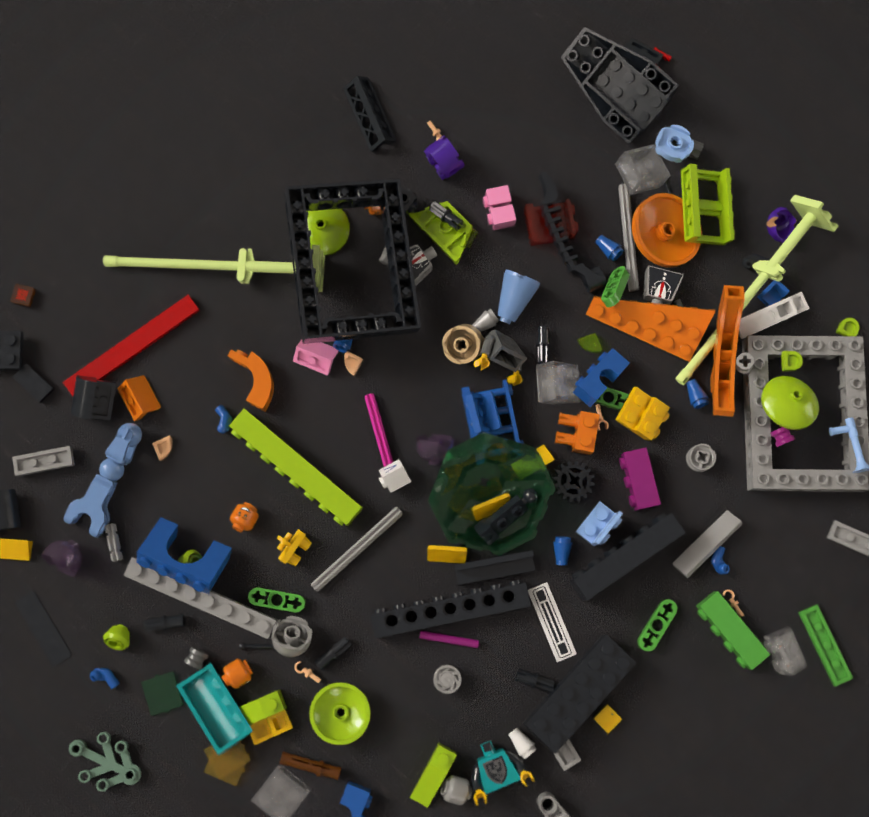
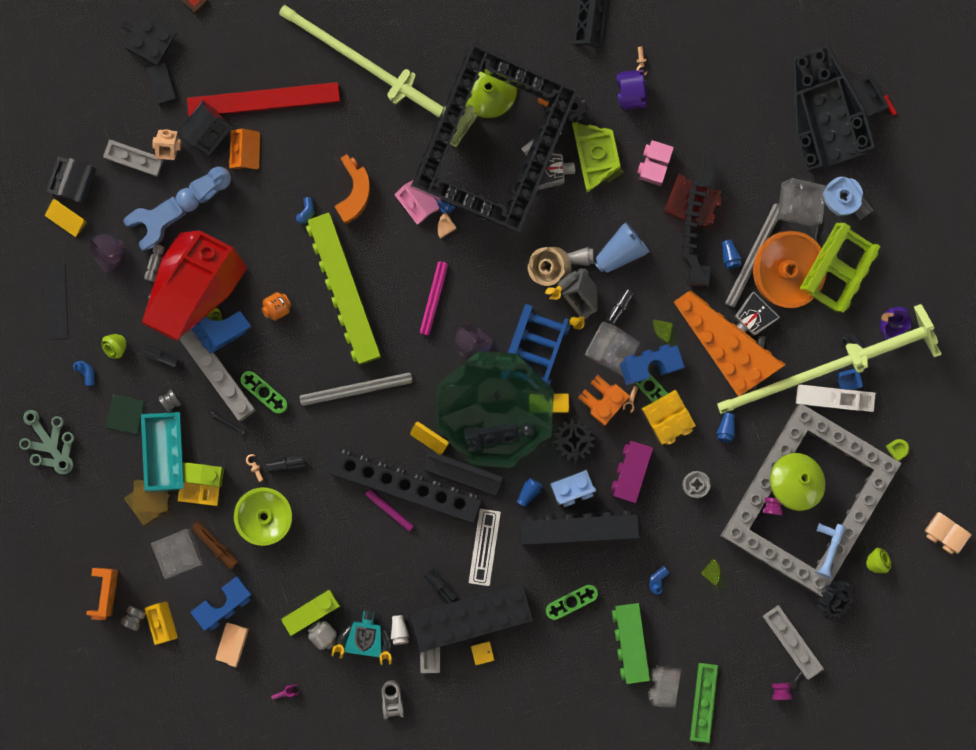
camera: 30 degrees right, 5 degrees up
(66, 432) = (166, 144): none -> light nougat brick
(155, 540) = (191, 283): none -> red wedge
(163, 447) = (241, 205): light nougat tile -> none
(237, 673) = (196, 434): orange head -> none
(288, 555) = (295, 359): yellow hips -> none
(291, 636) = (259, 429): light grey cylinder -> none
(394, 476) = (423, 346): white brick -> none
(446, 215) = (602, 143): black axle -> none
(447, 679) = (368, 541): light grey wheel -> none
(483, 412) = (530, 336): blue bracket -> none
(489, 507) = (485, 419): yellow slope -> none
(615, 286) = (712, 293): bright green beam -> none
(707, 543) = (656, 559): light grey tile -> none
(725, 350) = (770, 406): orange arch -> none
(733, 603) = (647, 623): light nougat hand -> none
(739, 365) = (782, 431): light grey bush -> none
(761, 525) = (712, 572): none -> clear neon green tile
(791, 360) = (823, 447): lime tile -> none

